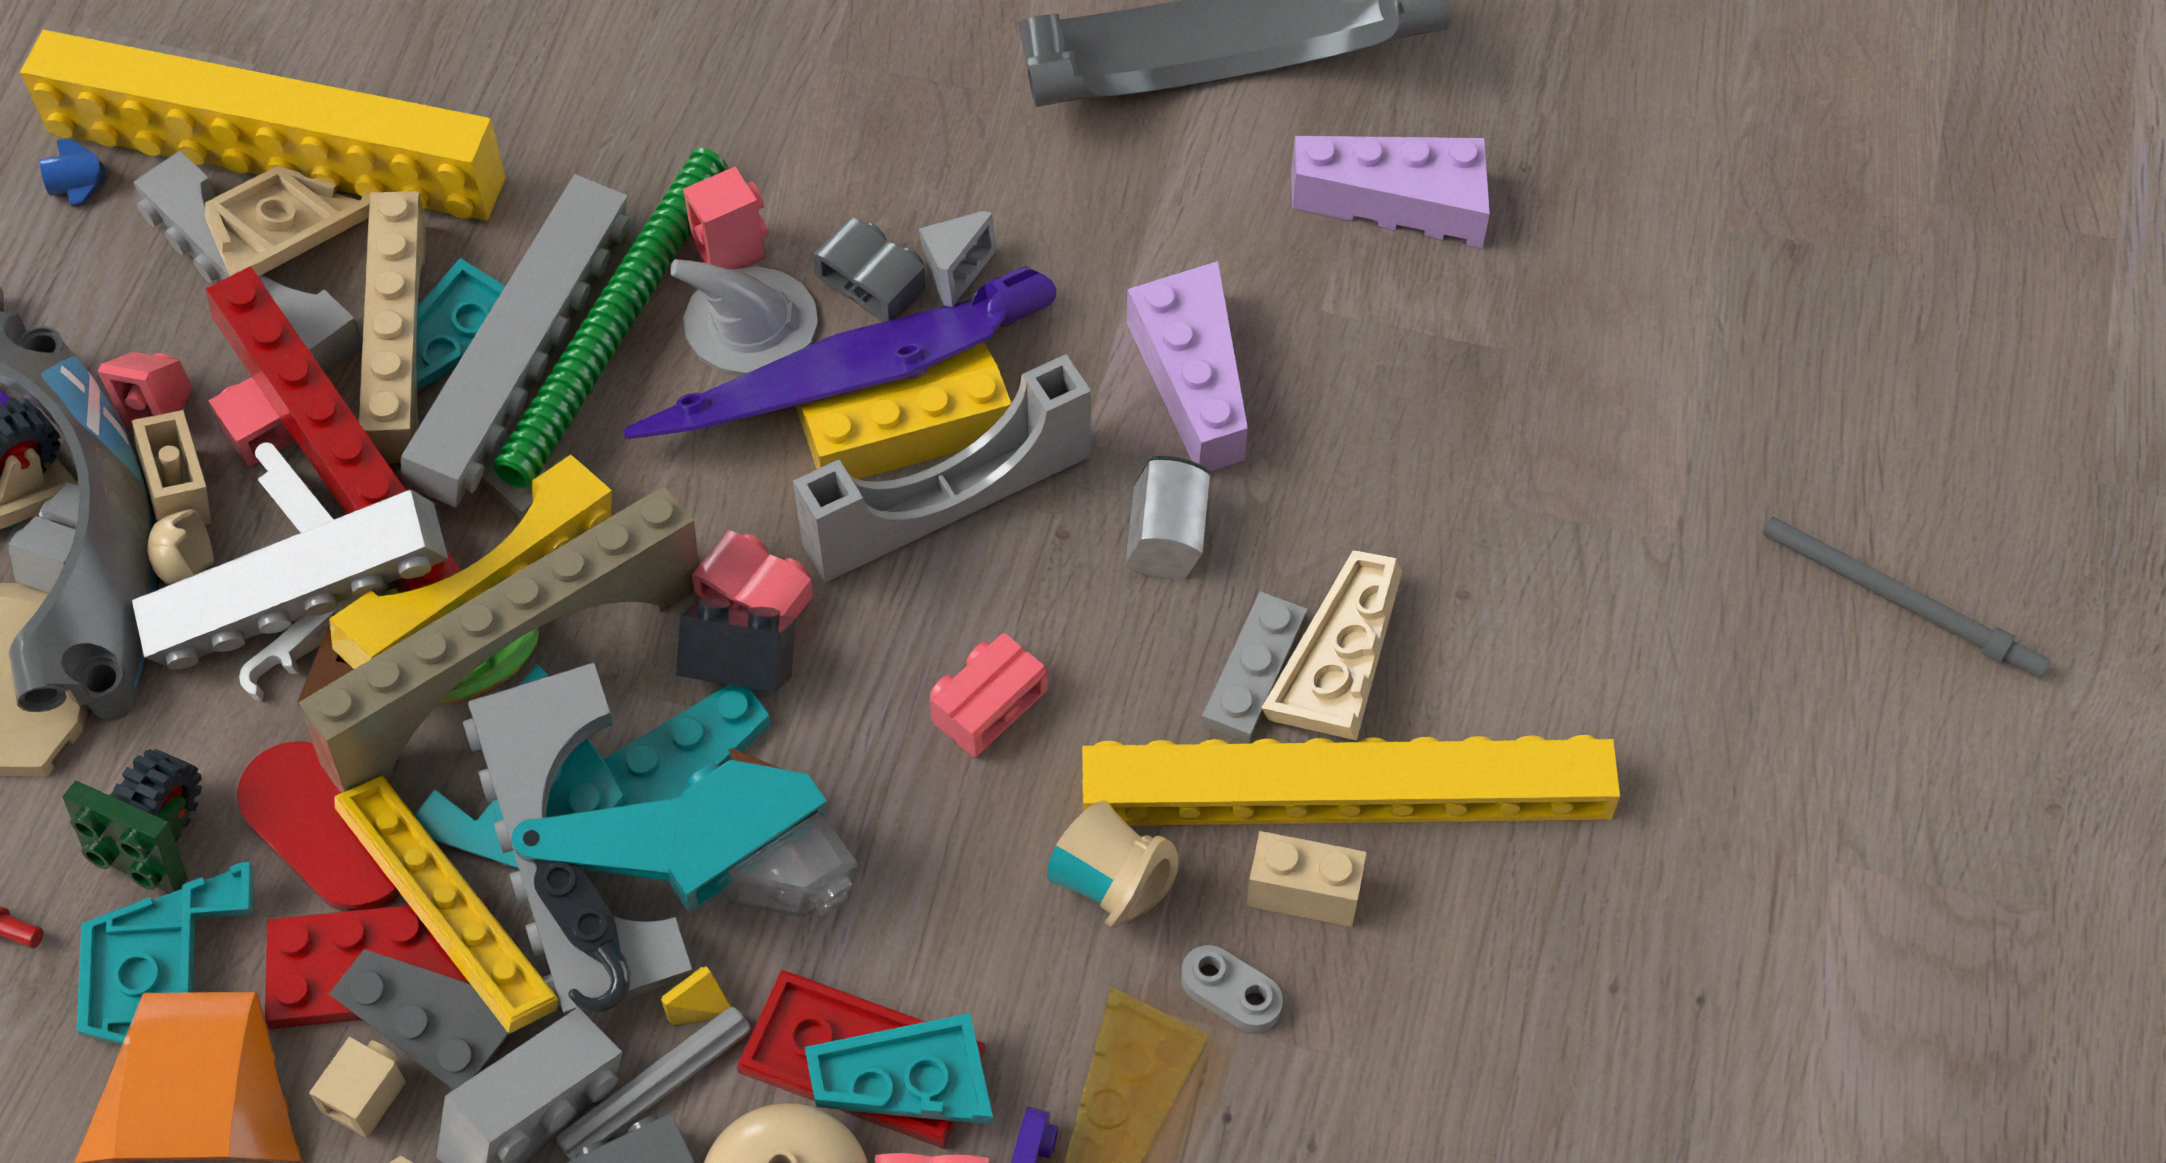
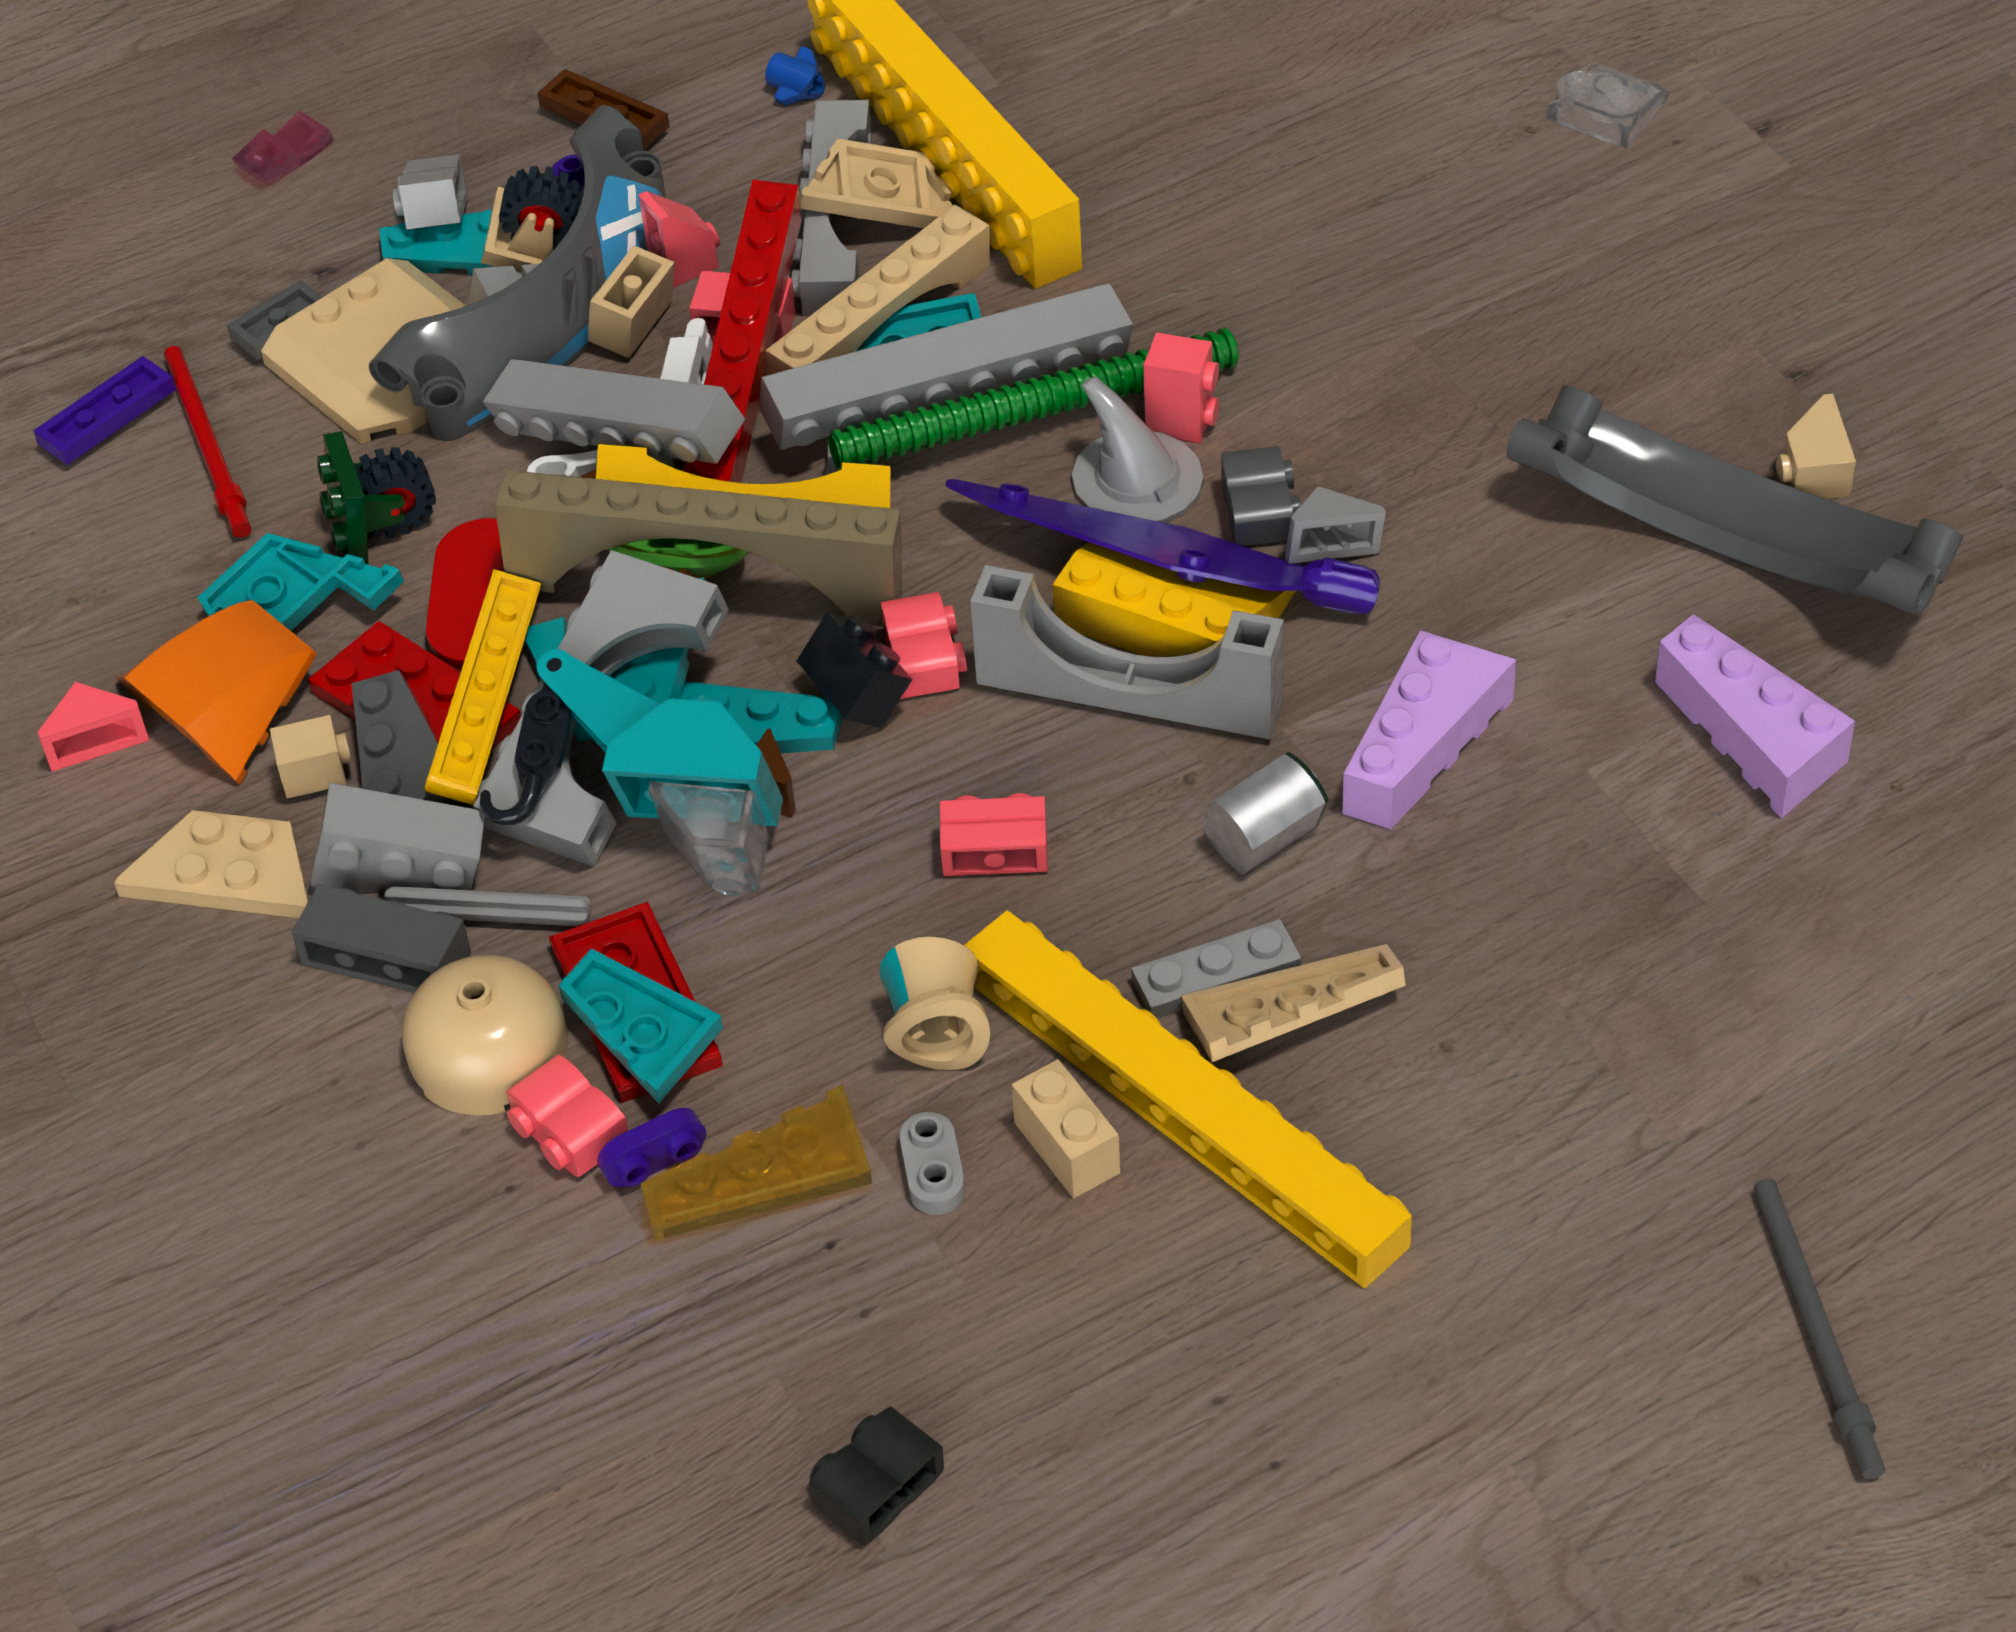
camera: 50 degrees right, 10 degrees down
(179, 546) = (586, 346): tan hair -> none
(695, 999) = (569, 871): yellow slope -> none

